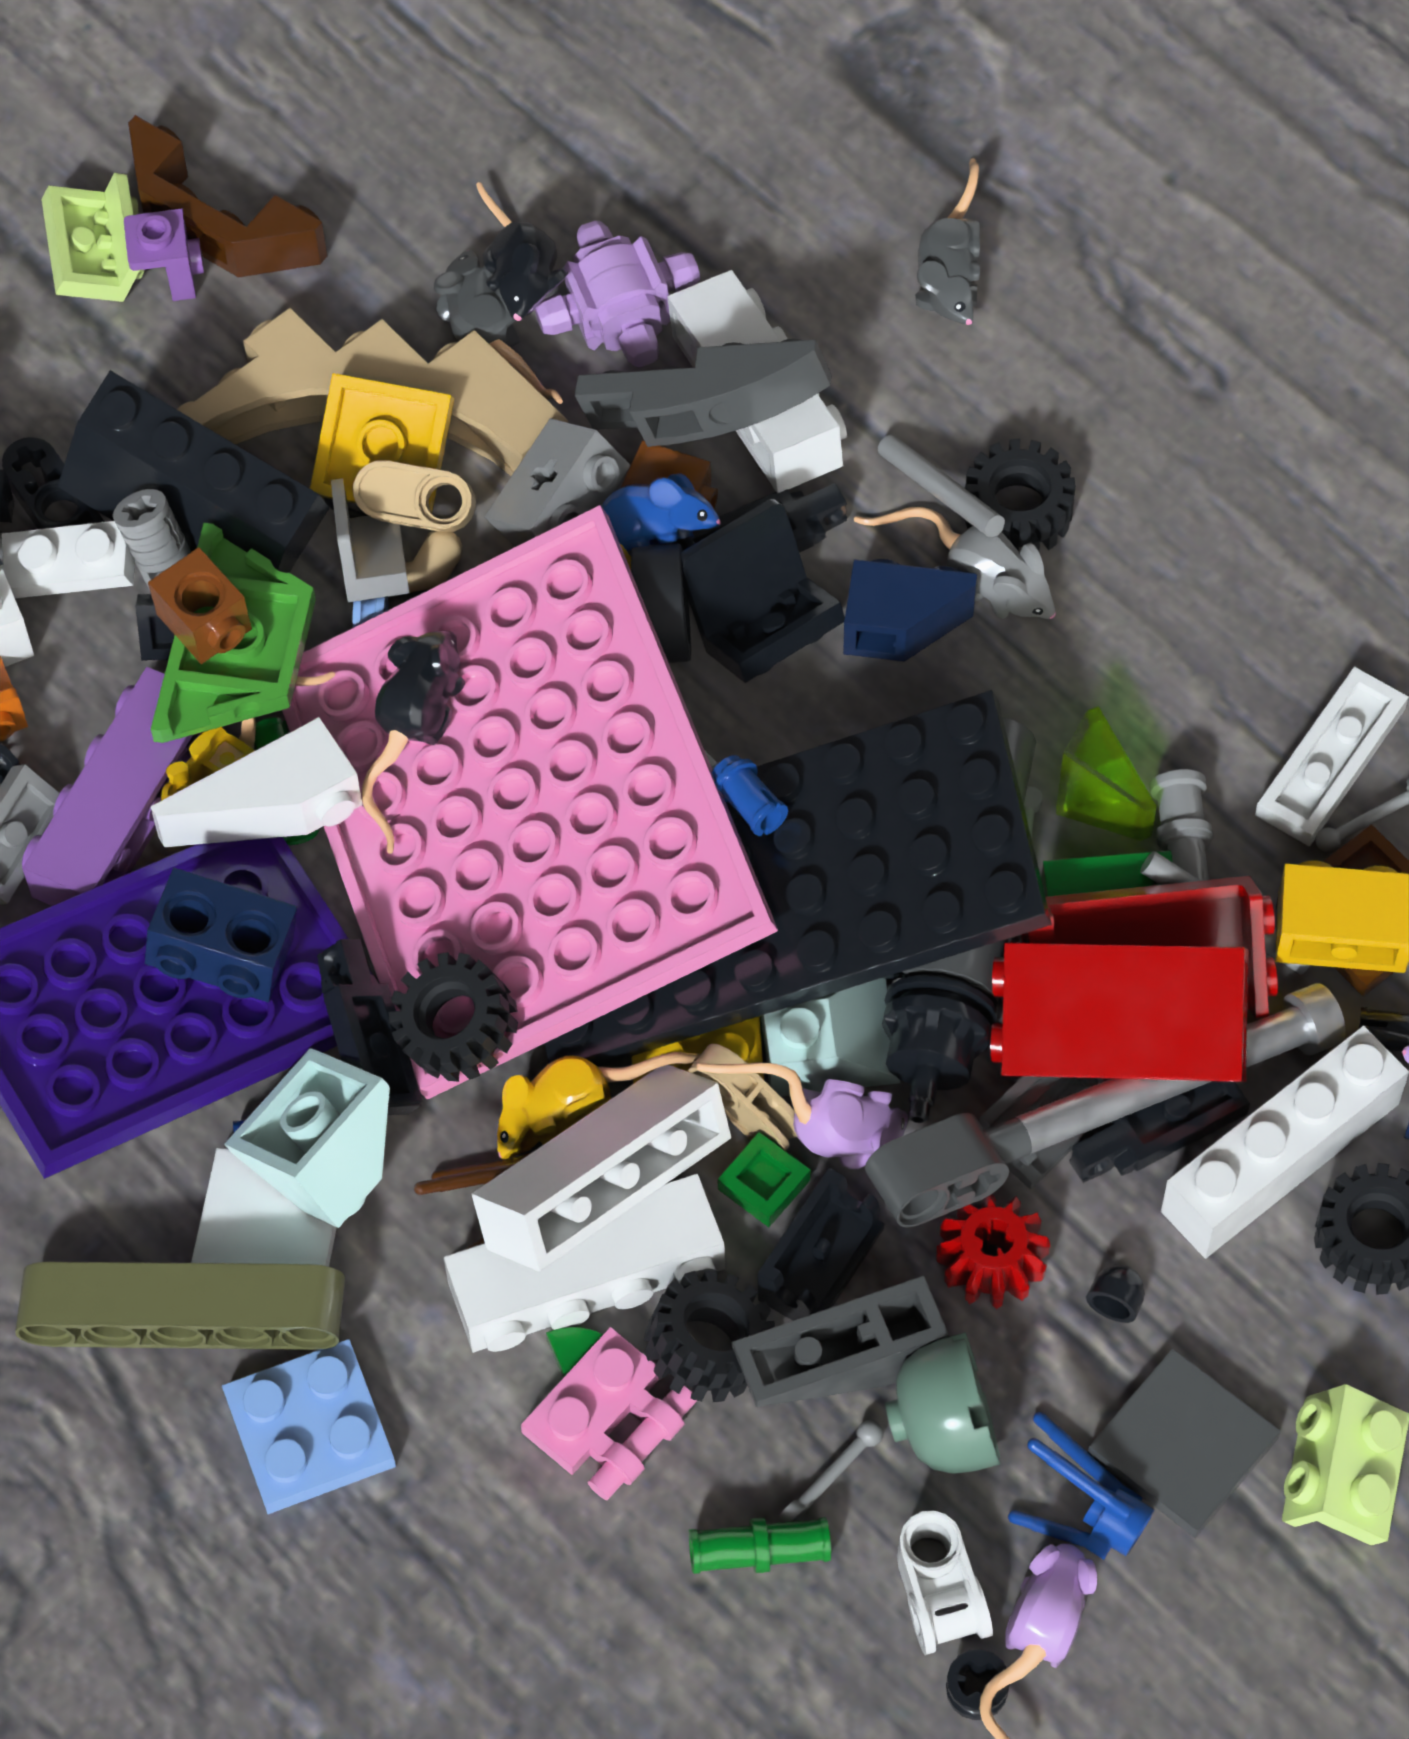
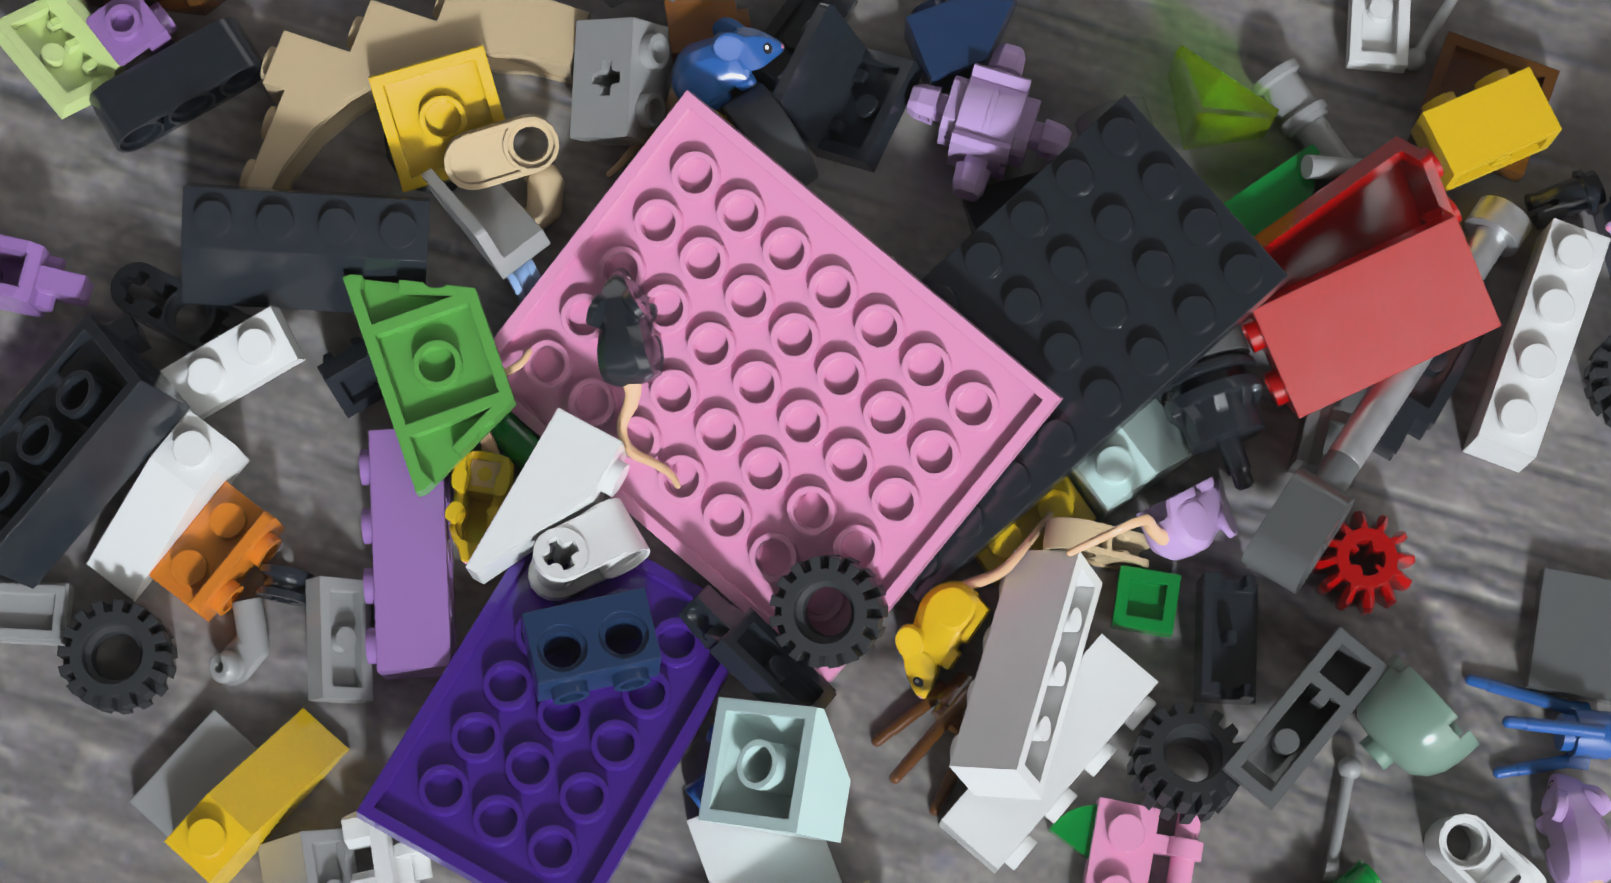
camera: 30 degrees left, 15 degrees up
(150, 532) = (306, 311): light grey hinge -> none
(172, 315) = (177, 84): none -> black beam
(197, 584) = (379, 344): dark orange brick -> none
(274, 856) = (595, 547): none -> white piece
(749, 795) = (968, 289): blue pin -> none
(871, 679) = (988, 121): none -> lavender piece
(1117, 1293) = (1476, 543): black hinge -> none

